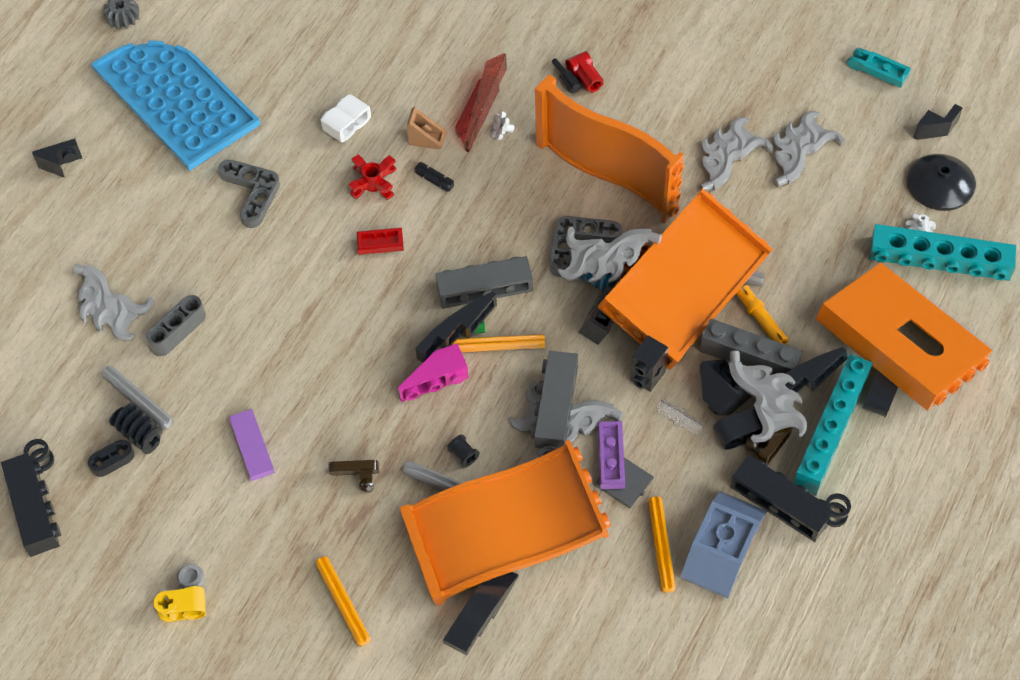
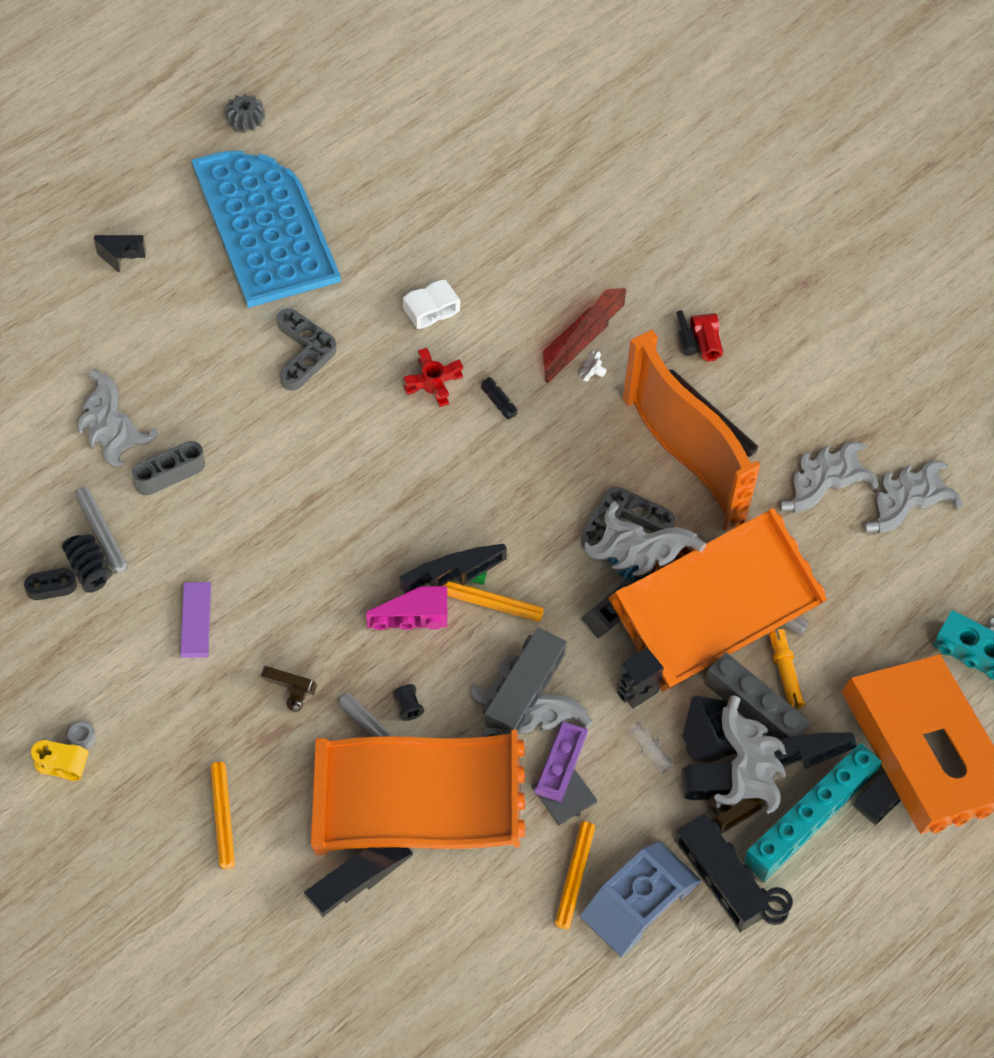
camera: 15 degrees right, 0 degrees up
(380, 241) = (413, 449): red plate -> none
(424, 131) = (507, 345): medium nougat slope -> none
(472, 282) = (492, 526): dark grey brick -> none

